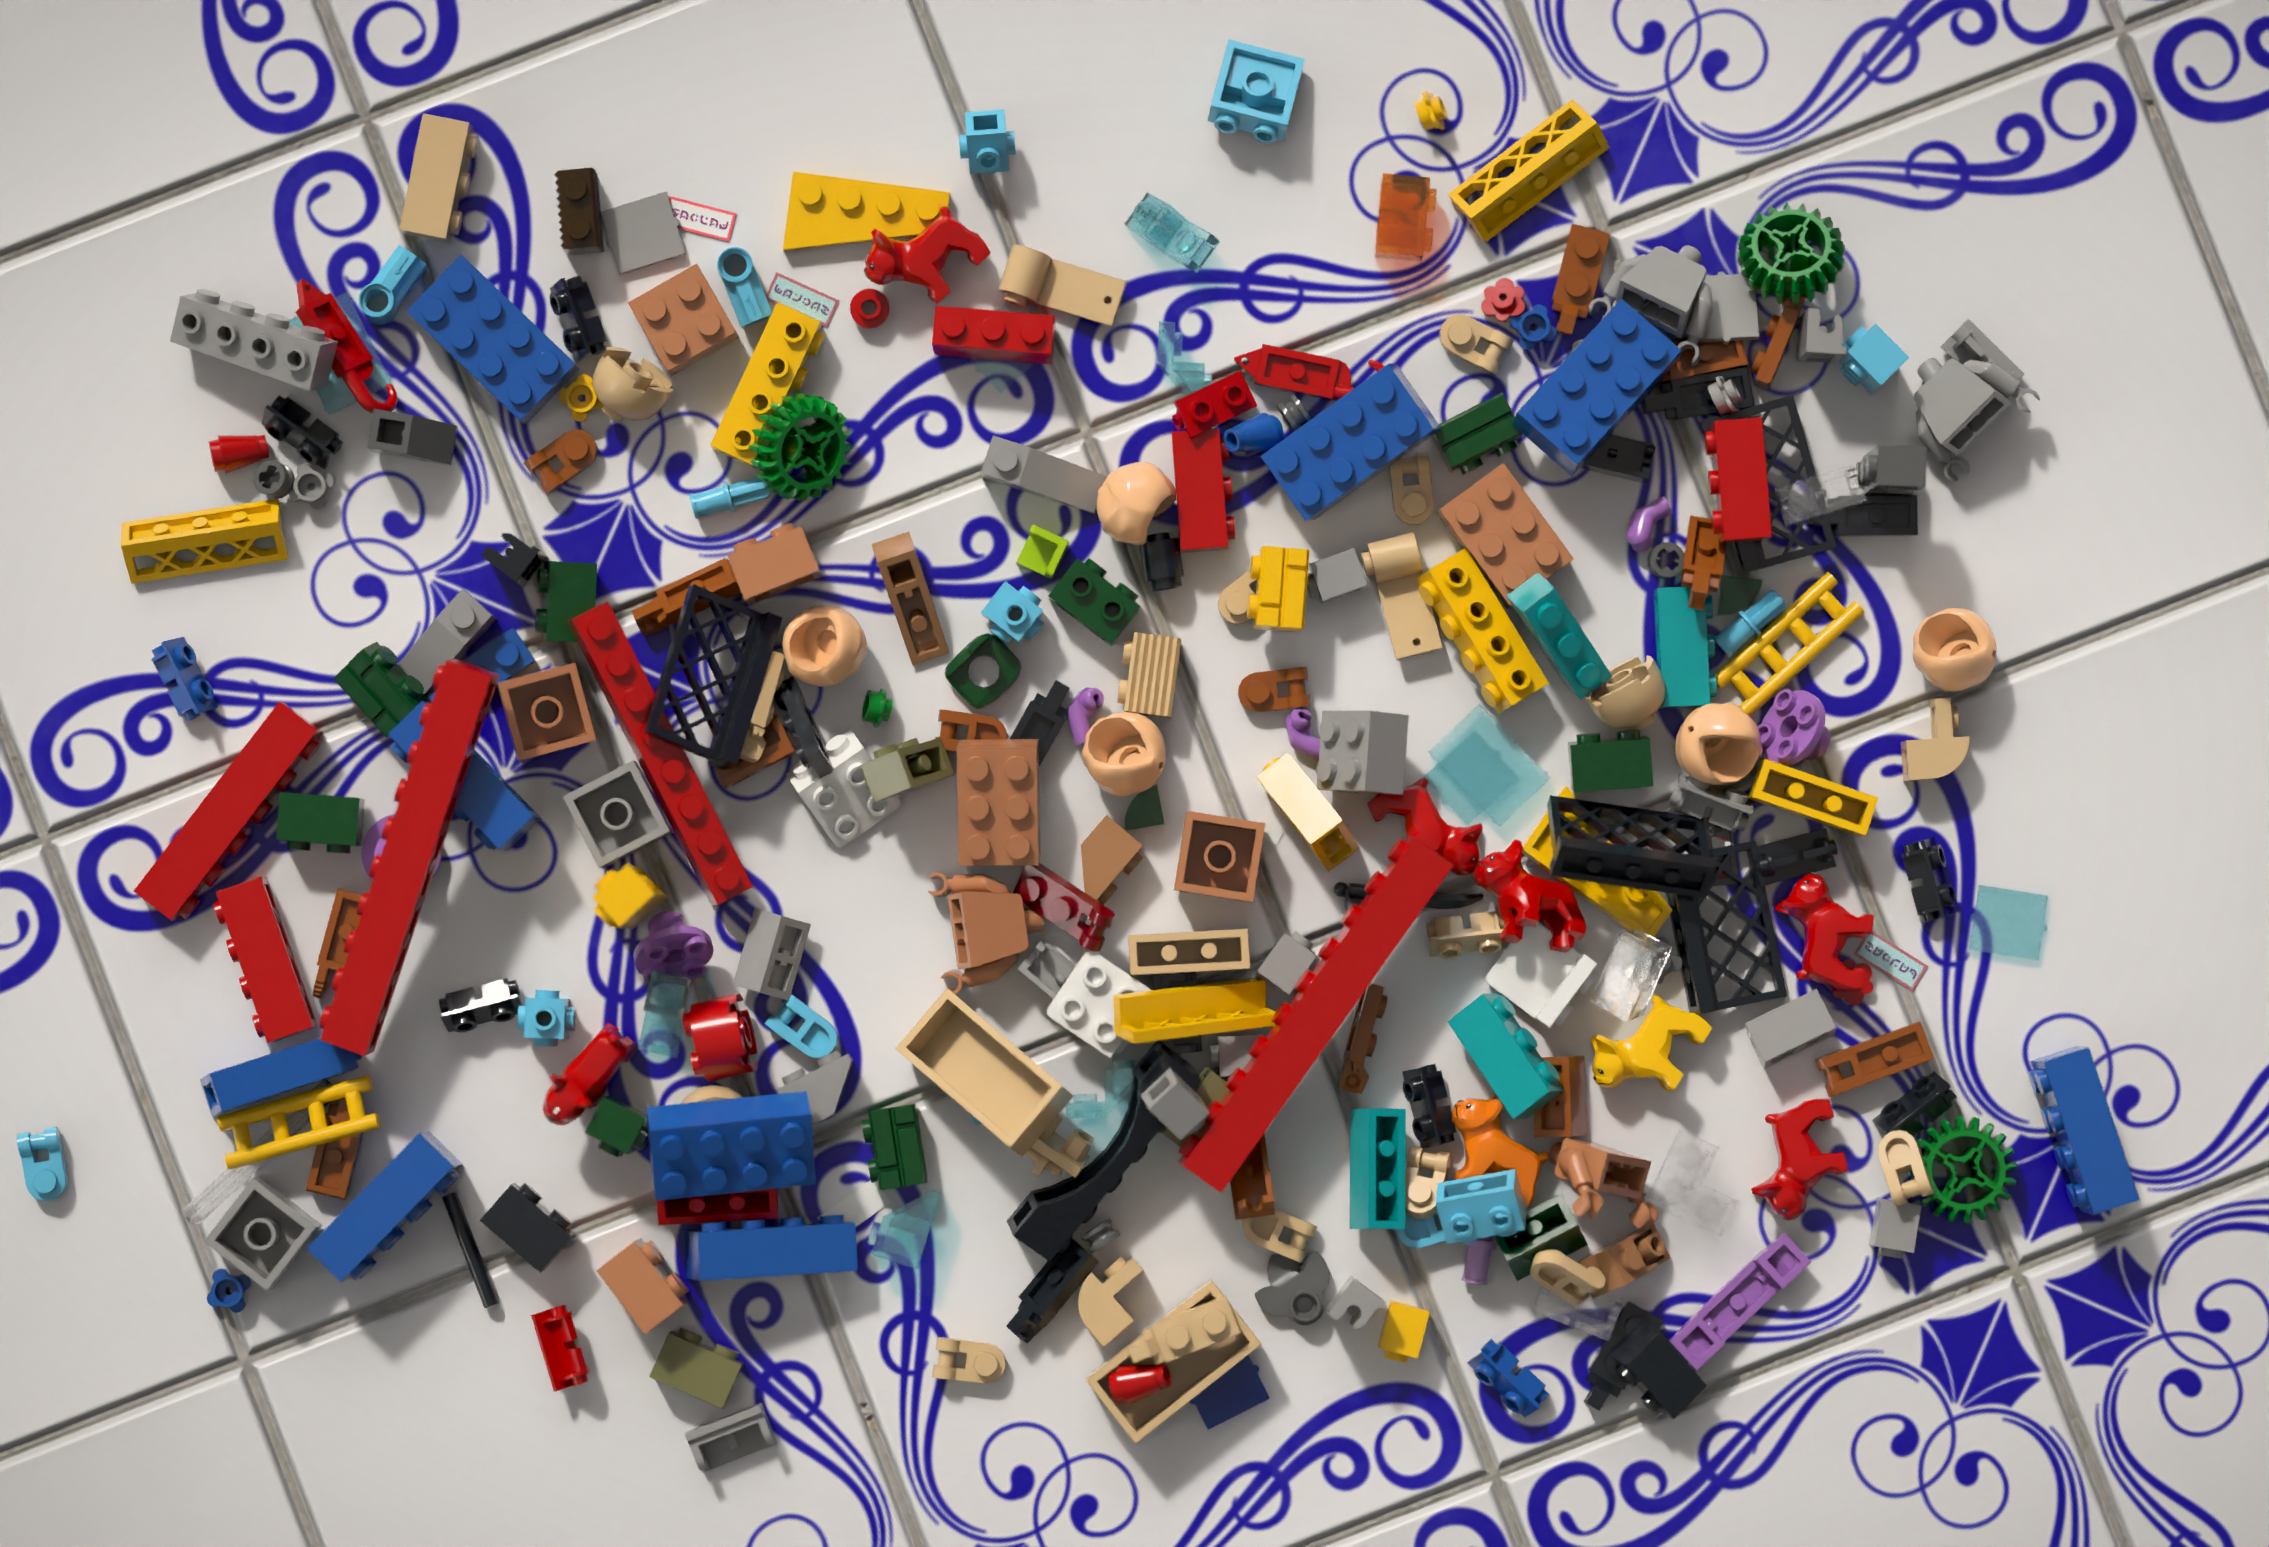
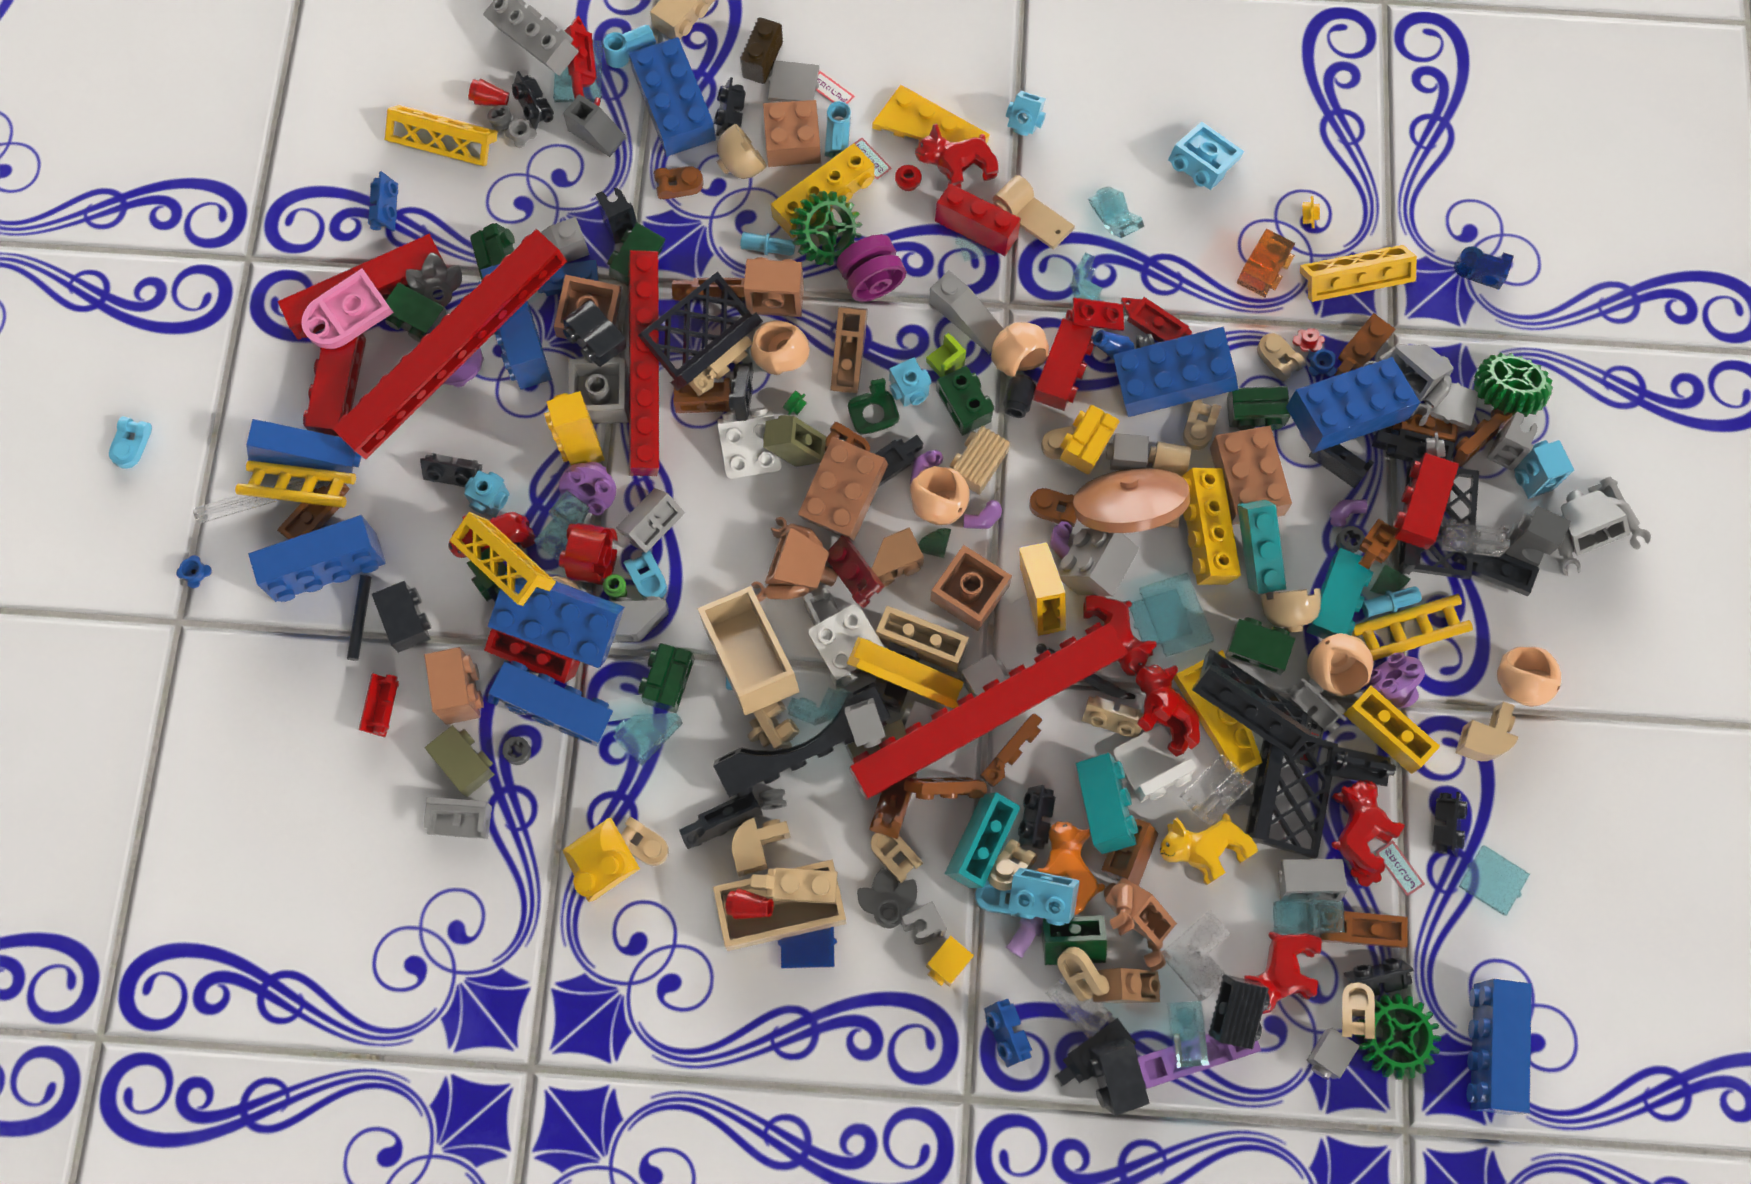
camera: 30 degrees right, 15 degrees down
(237, 864) = (346, 311): none -> bright pink tile
(263, 1233) = (228, 539): light grey brick -> none
(320, 758) = (433, 277): none -> dark grey plate
(571, 394) = (704, 147): yellow plate -> none
(581, 752) = (594, 334): none -> black brick
(638, 1101) = (508, 552): none -> yellow fence
(764, 1064) = (609, 586): none -> bright green pin
(769, 1319) = (507, 750): none -> dark grey bush
(895, 483) = (871, 268): none -> magenta wheel
(929, 1407) = (600, 860): none -> yellow slope
(1194, 748) = (986, 518): none -> medium lavender arm
(1304, 1127) = (945, 786): none -> dark orange hinge
(1371, 653) = (1131, 500): none -> nougat dish
(1682, 90) = (1483, 267): none -> clear blue leg
(1717, 1283) = (1188, 1033): none -> clear light blue slope
(1766, 1235) = (1239, 1012): none -> black brick
(1803, 1077) = (1308, 917): none -> clear light blue slope

